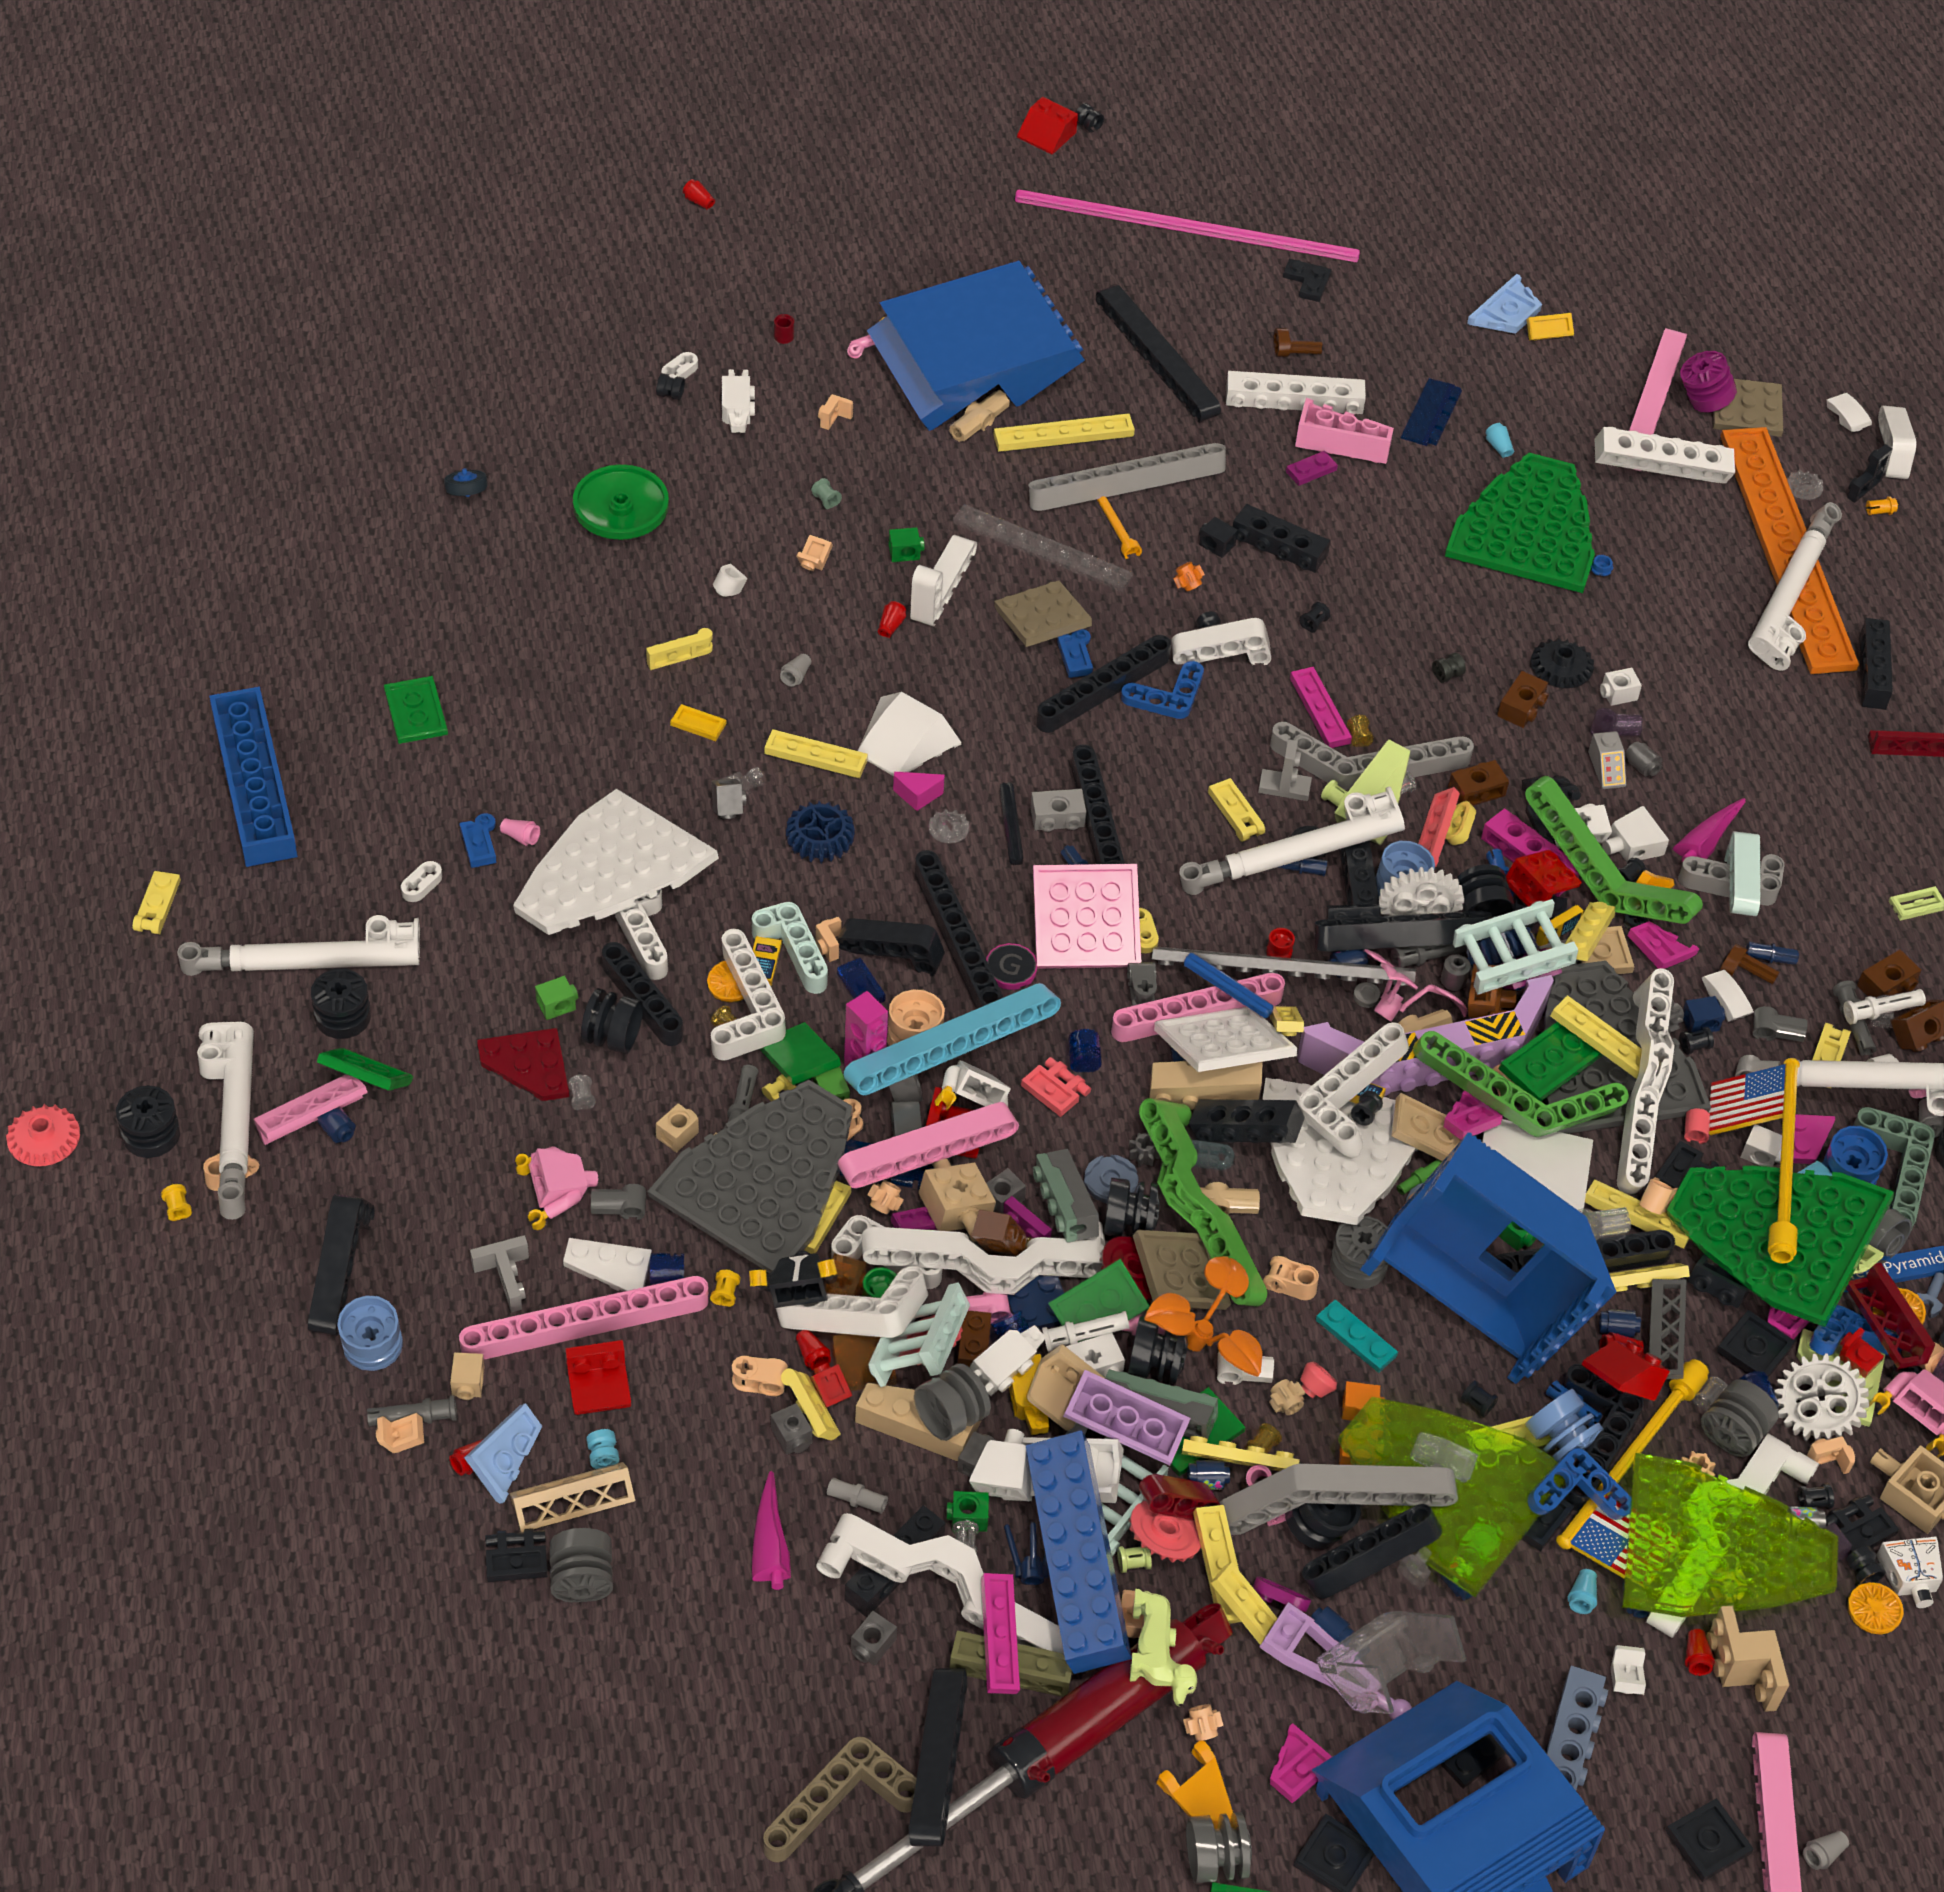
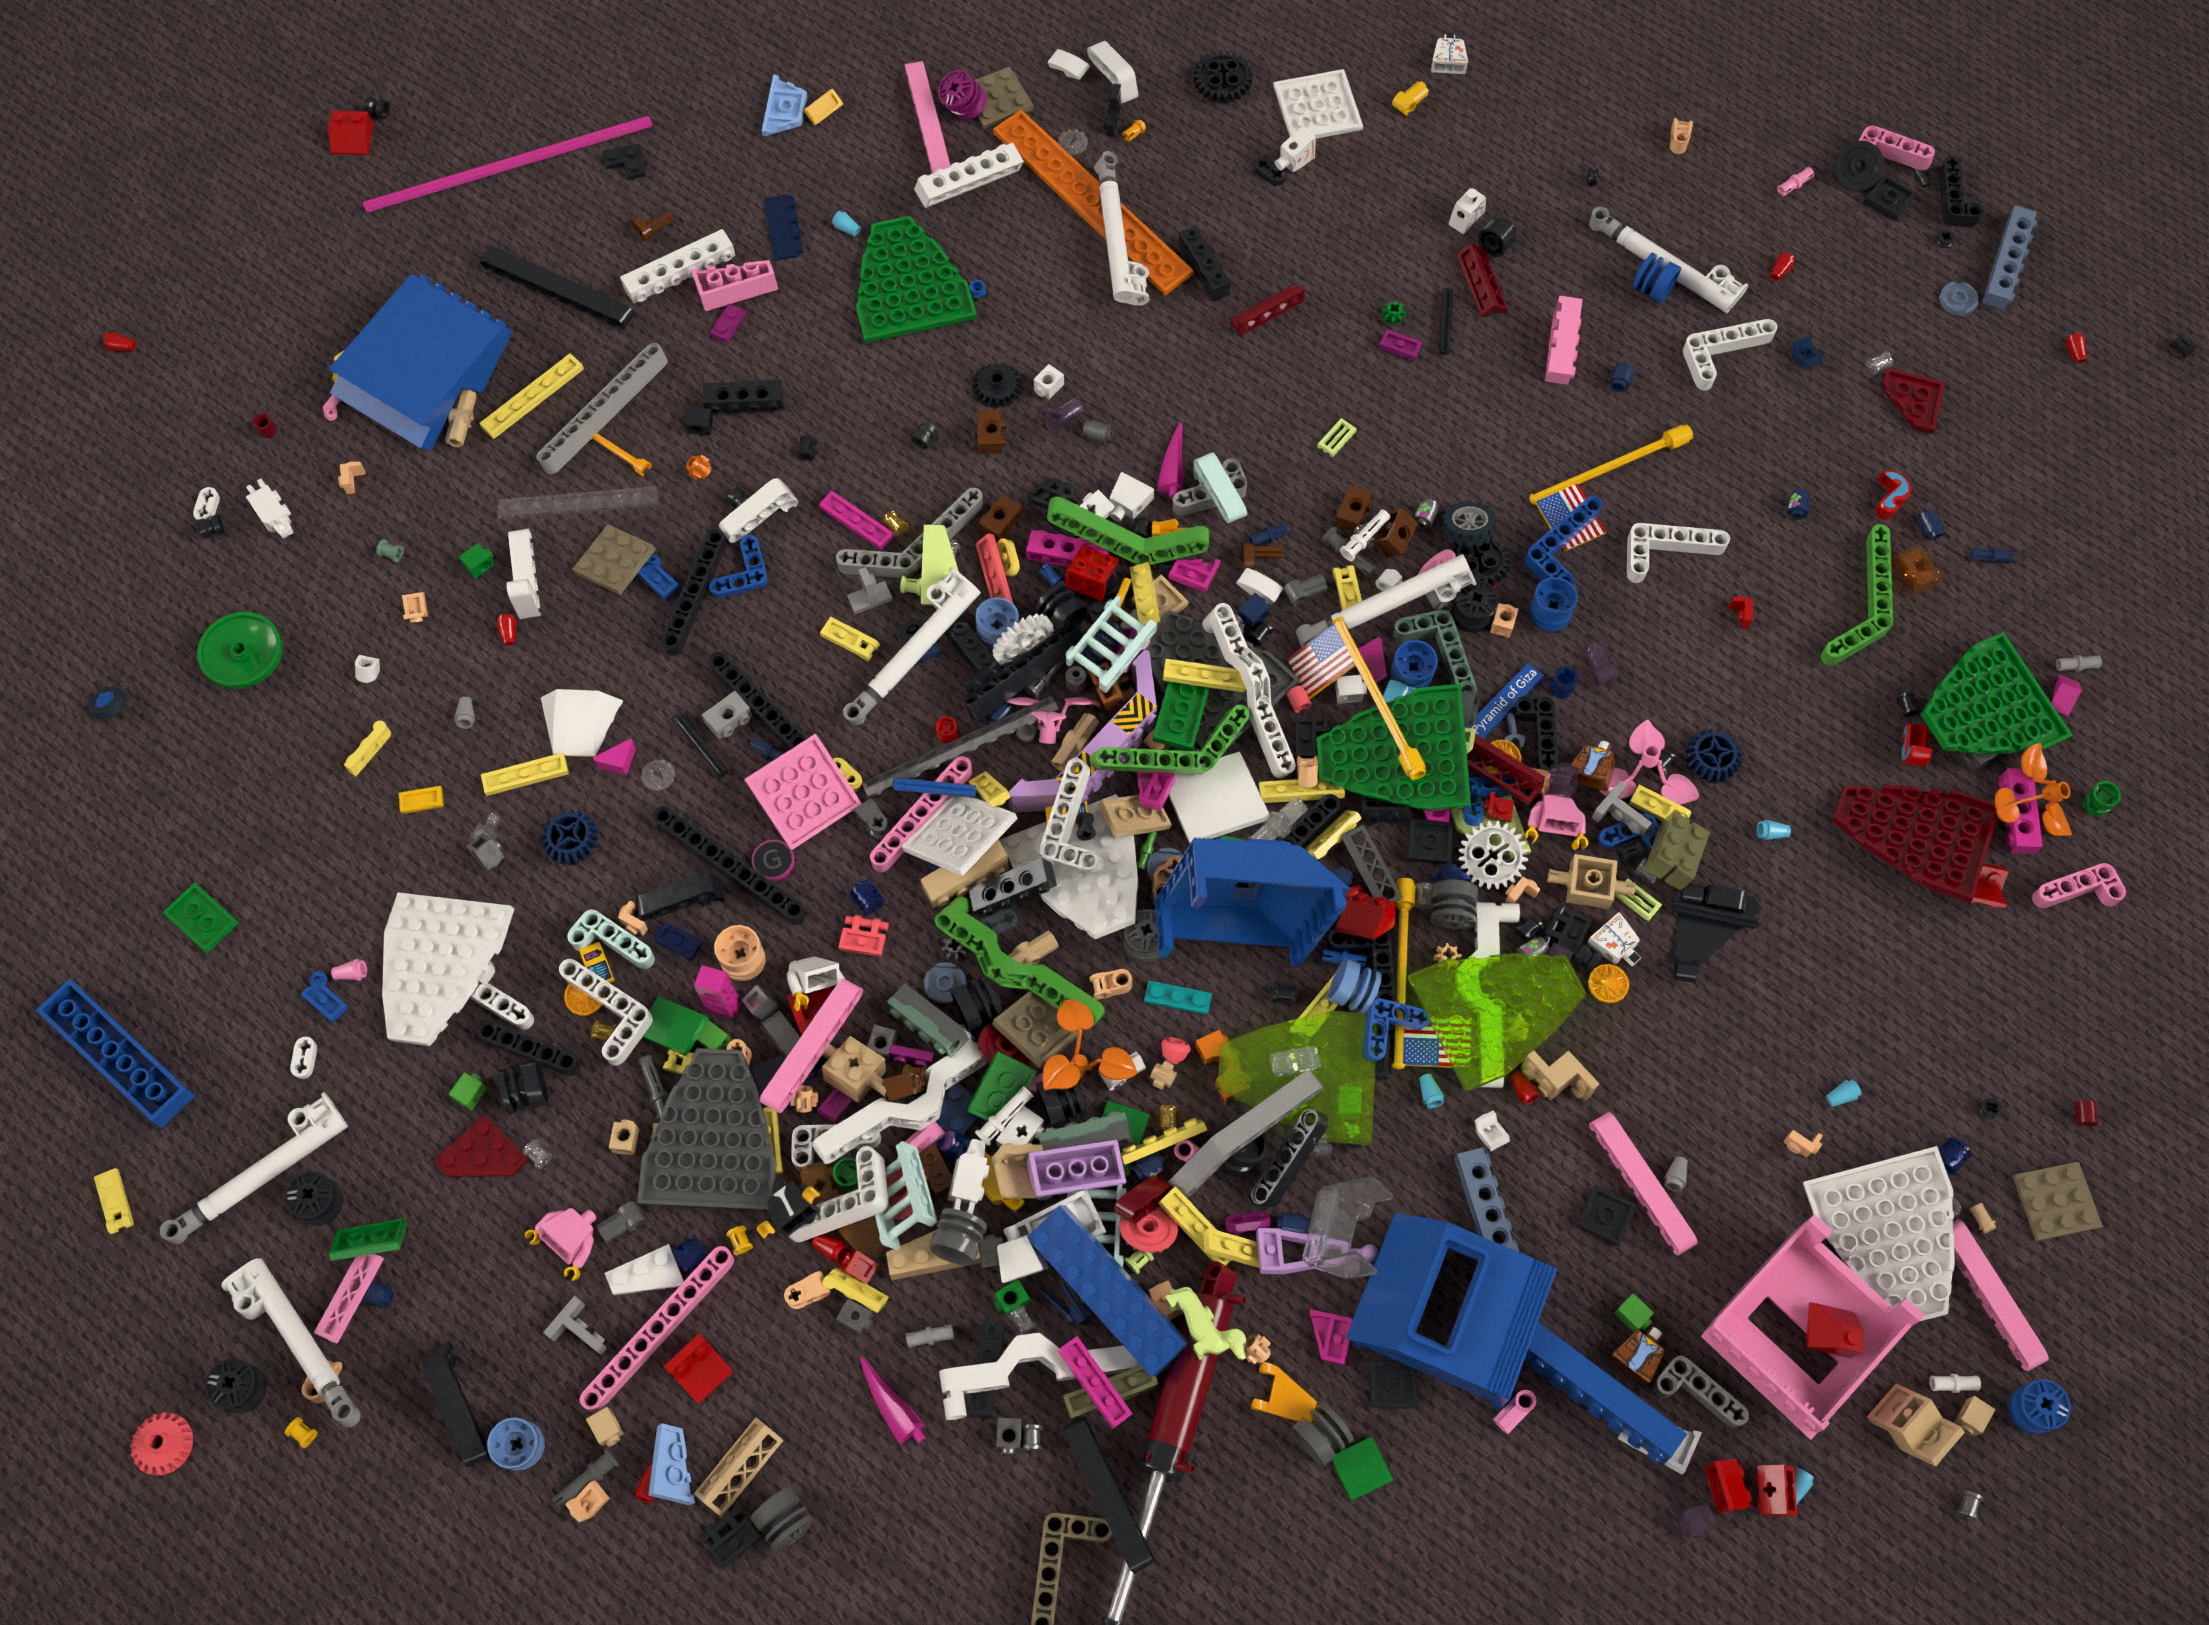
camera: 30 degrees left, 15 degrees up
(602, 1448) = (736, 1418): medium azure wheel -> none
(895, 1657) = (1031, 1438): none -> flat silver bush
(951, 1039) = (775, 953): medium azure beam -> none
(1608, 759) = (1075, 446): light grey slope -> none

